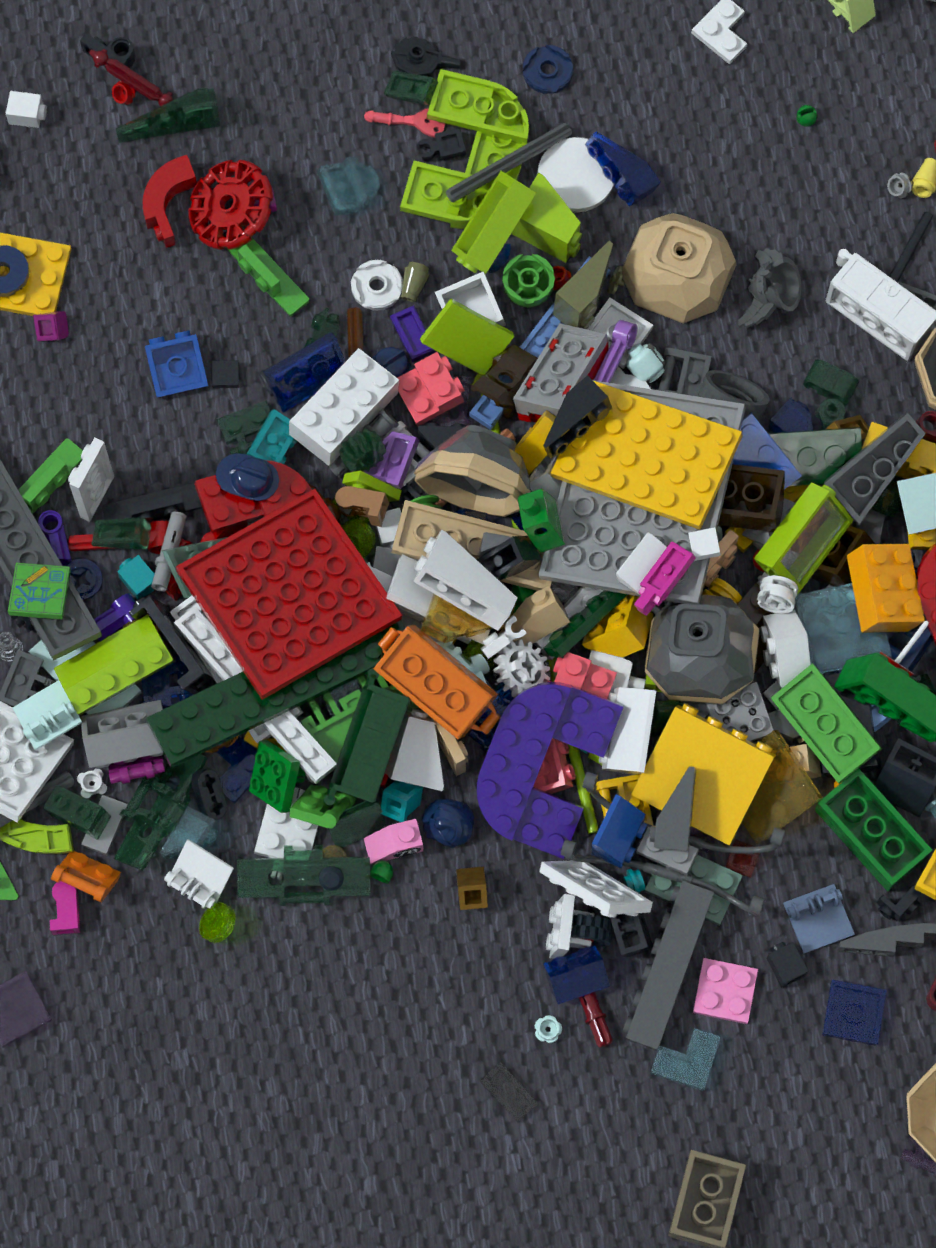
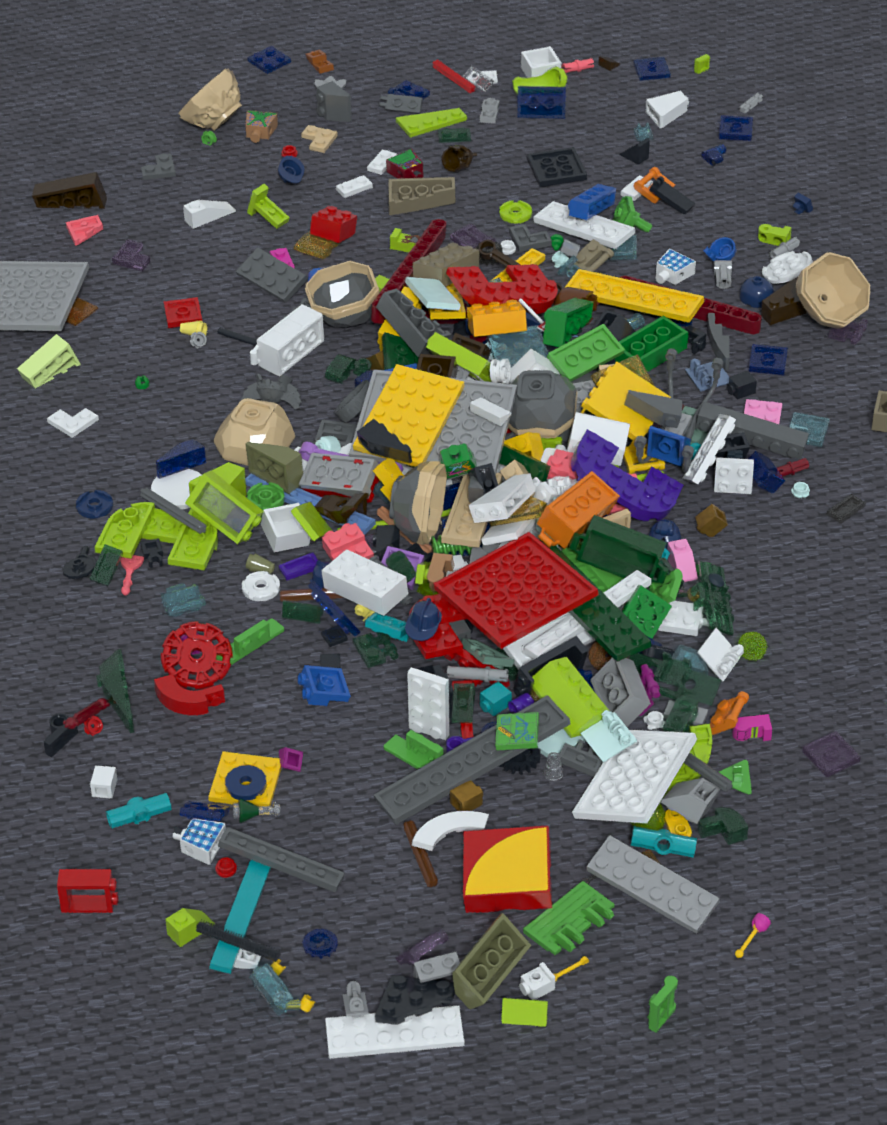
camera: 90 degrees left, 30 degrees down
(663, 577) = (501, 396): dark pink hinge -> none
(704, 543) = (476, 380): white tile -> none

